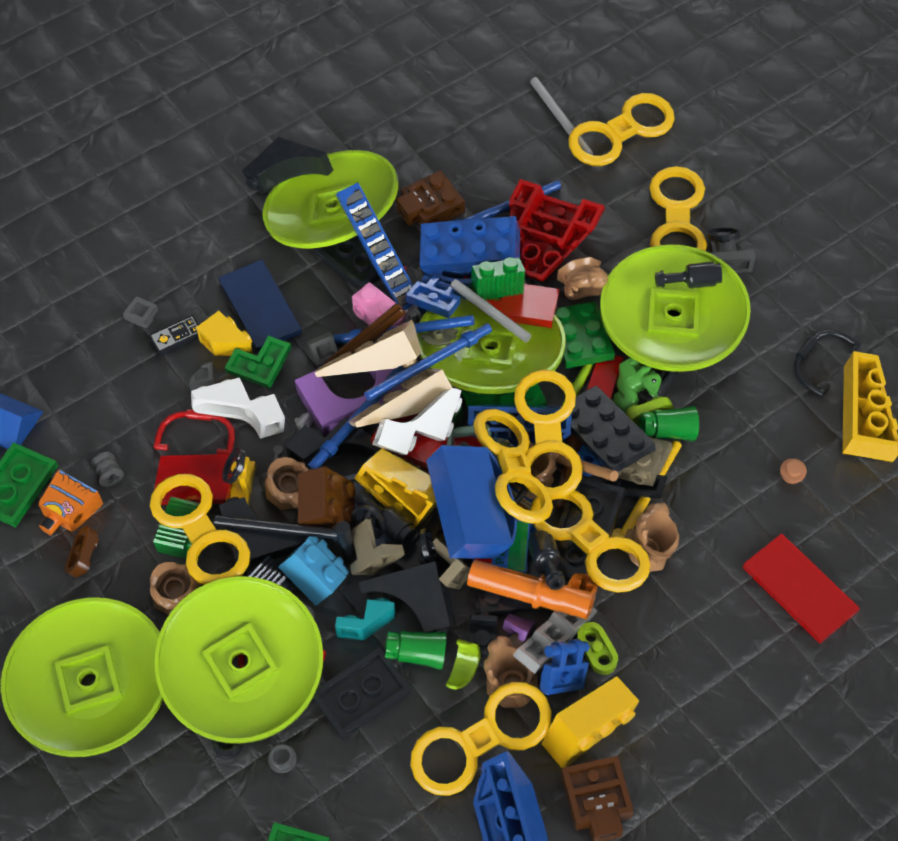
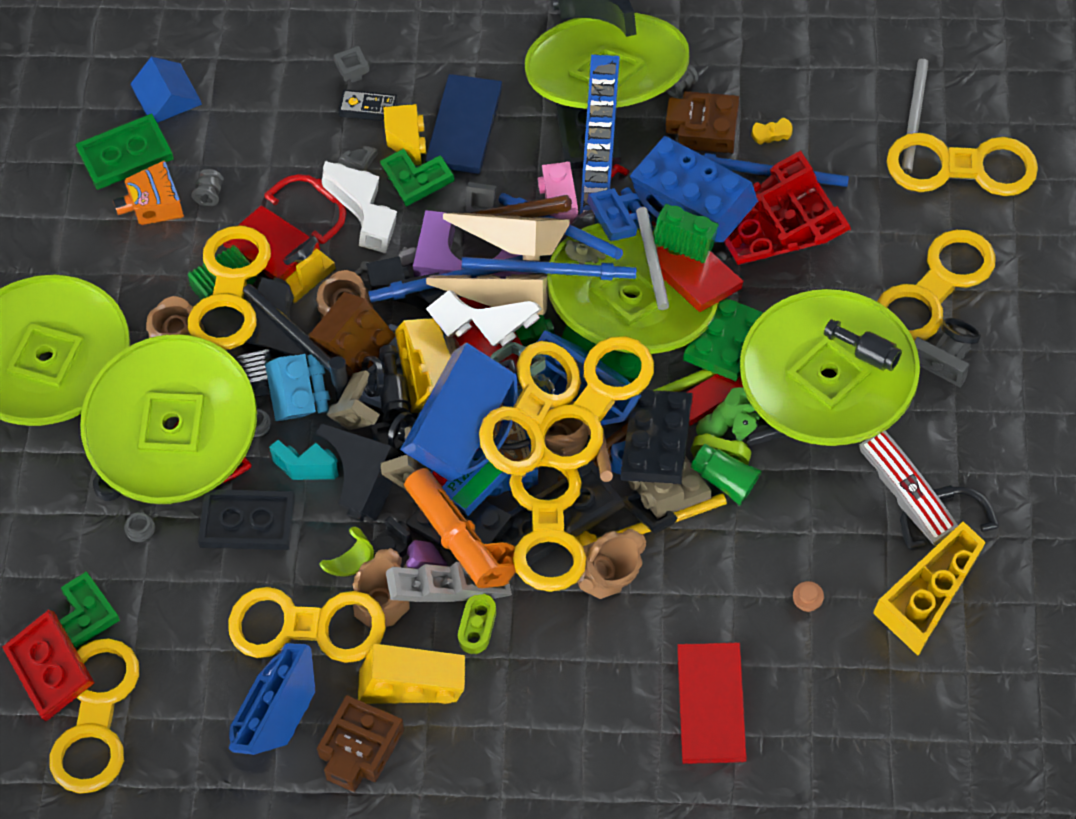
camera: 40 degrees right, 0 degrees up
(81, 551) = (120, 251): reddish brown plate -> none
(417, 648) = (321, 513): green plant -> none
(478, 182) = (772, 131): none -> yellow piece
(546, 558) = (488, 509): black piece -> none
(561, 674) = (419, 622): blue plate -> none
(582, 278) = (772, 282): medium nougat piece -> none
(792, 352) = (909, 487): none -> slope

